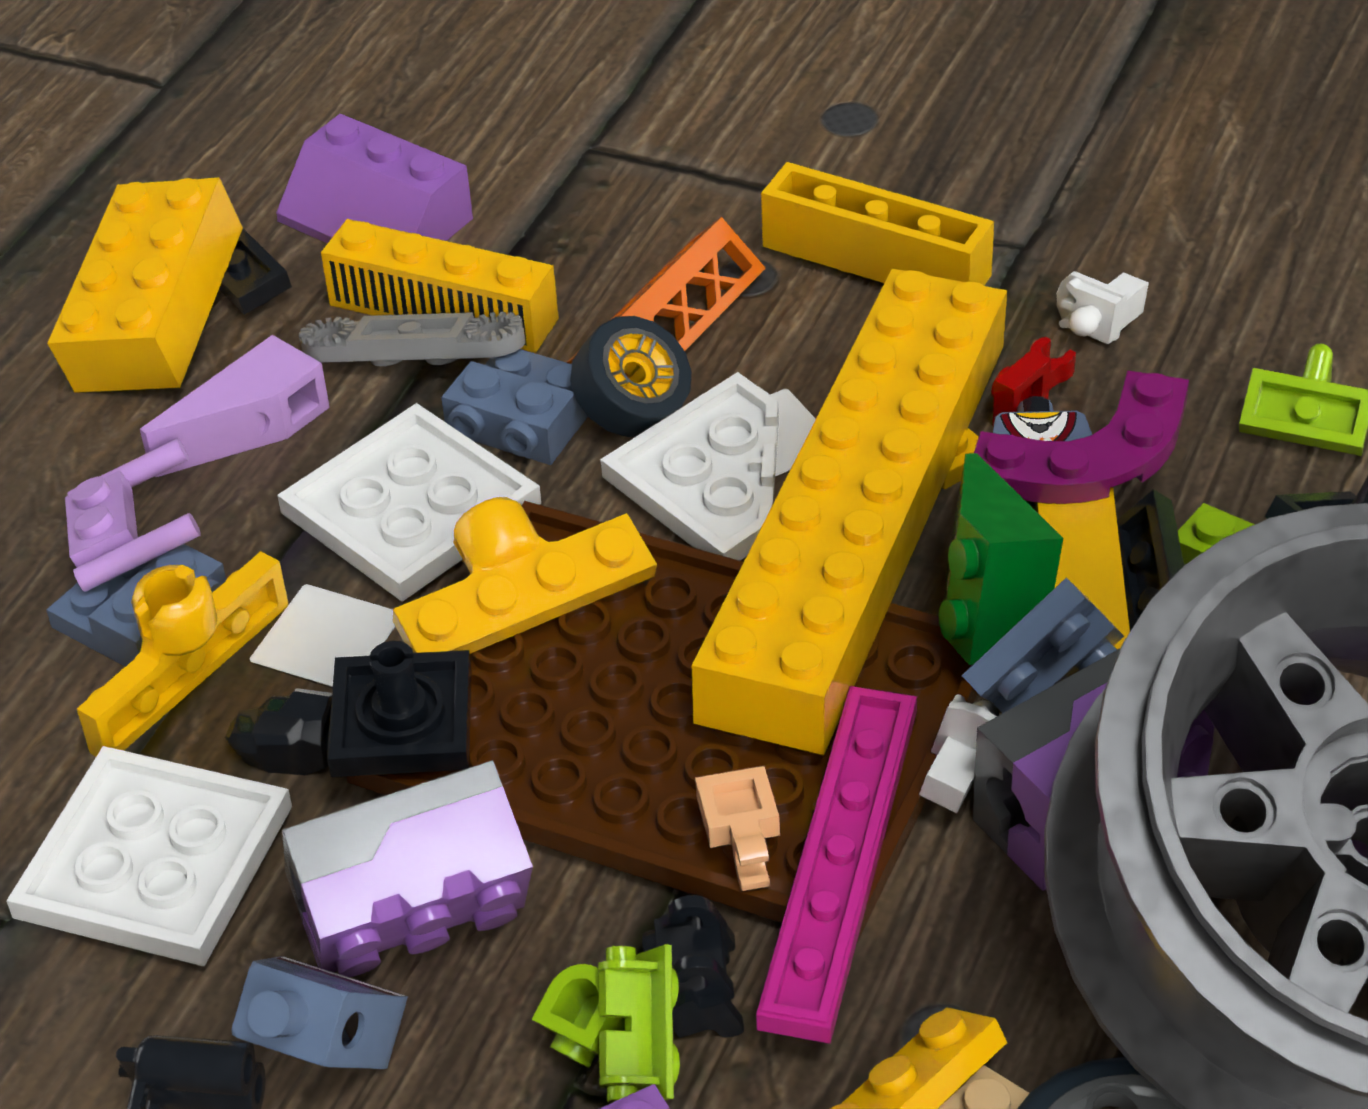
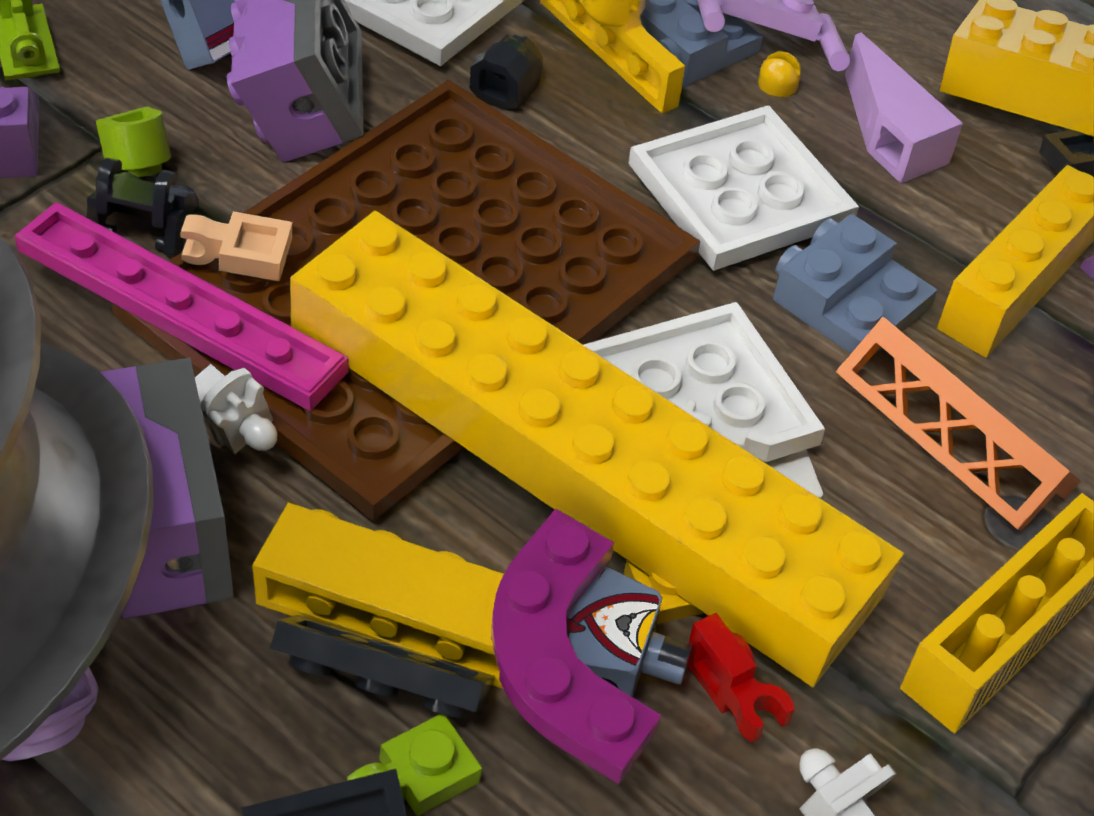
camera: 100 degrees right, 5 degrees up
(199, 506) = (780, 74): none -> yellow hinge
(318, 629) = (614, 122): white sticker -> none
(400, 712) = (466, 95): black plate -> none
(426, 337) = (956, 229): light grey plate -> none
(520, 578) = (582, 192): yellow plate -> none
(644, 993) = (84, 141): lime hinge -> none
(656, 381) = (820, 311): wheel -> none
(998, 562) = (420, 468): green slope -> none
(1044, 648) = (255, 455): sand blue plate -> none

